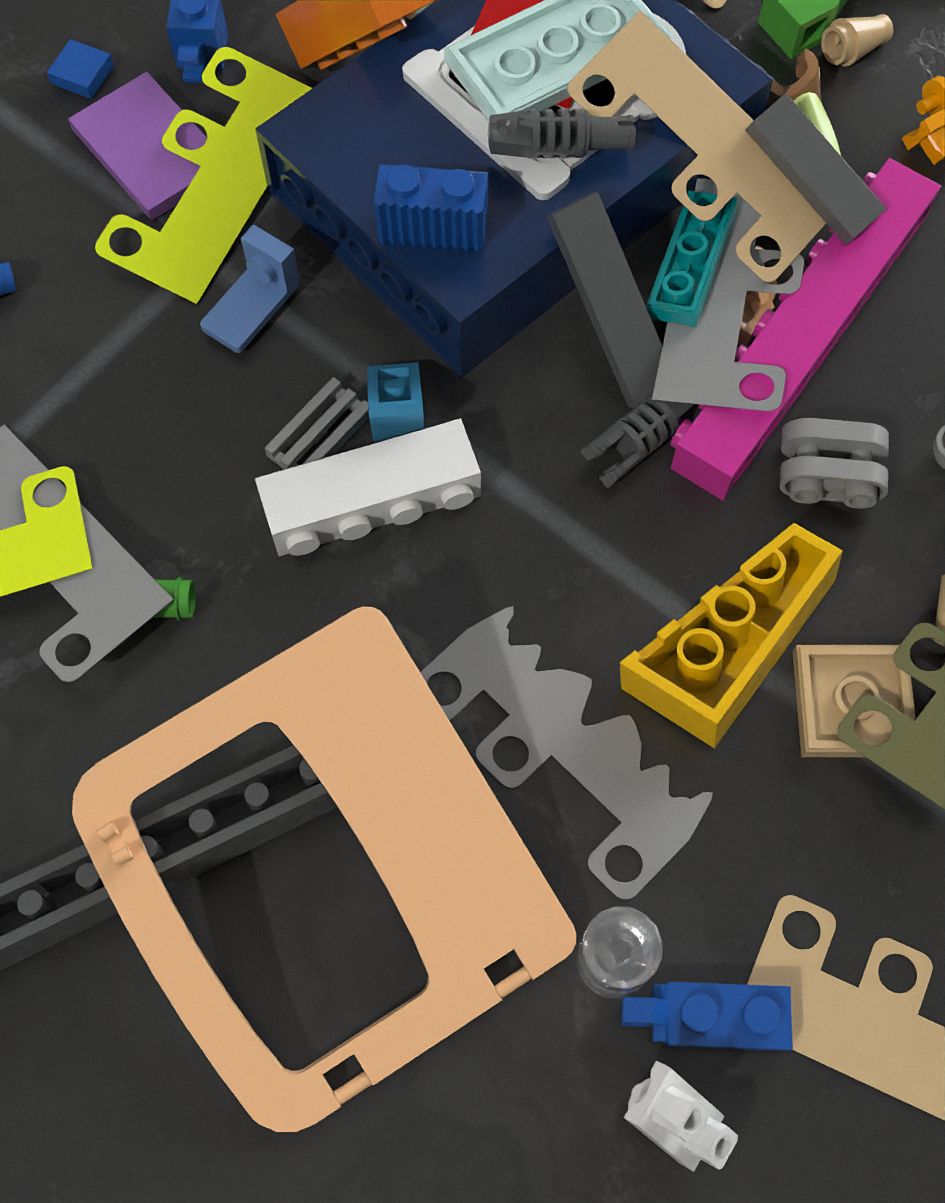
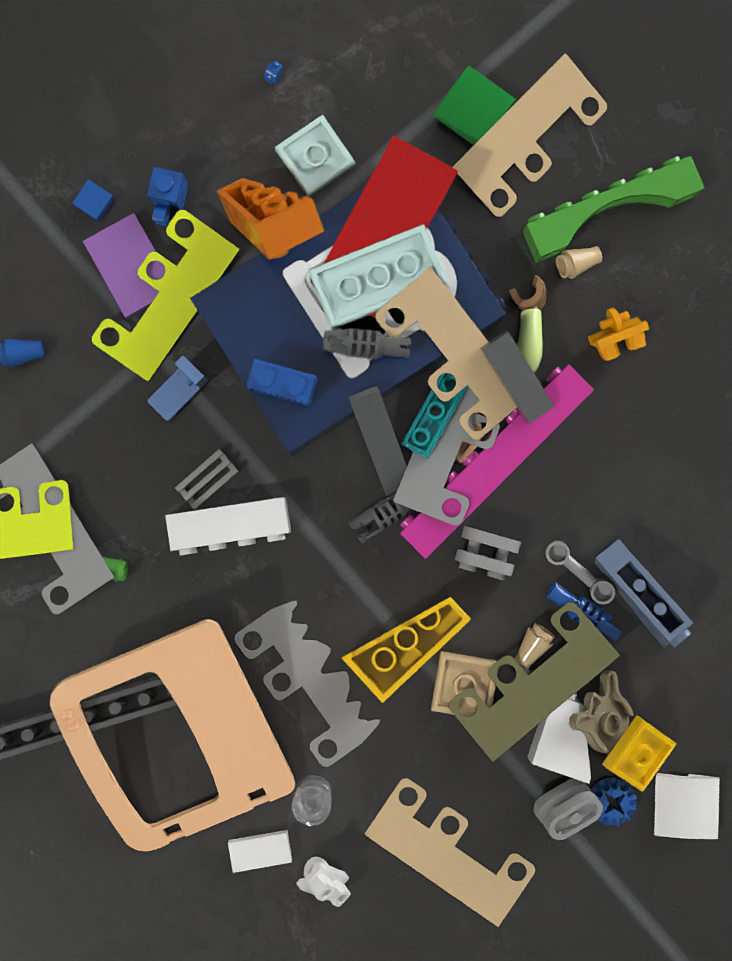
camera: 10 degrees right, 20 degrees up
(394, 400) = (250, 471): dark azure slope -> none
(530, 1089) = (260, 851): none -> white tile
(714, 1015) = (355, 833): blue hinge -> none

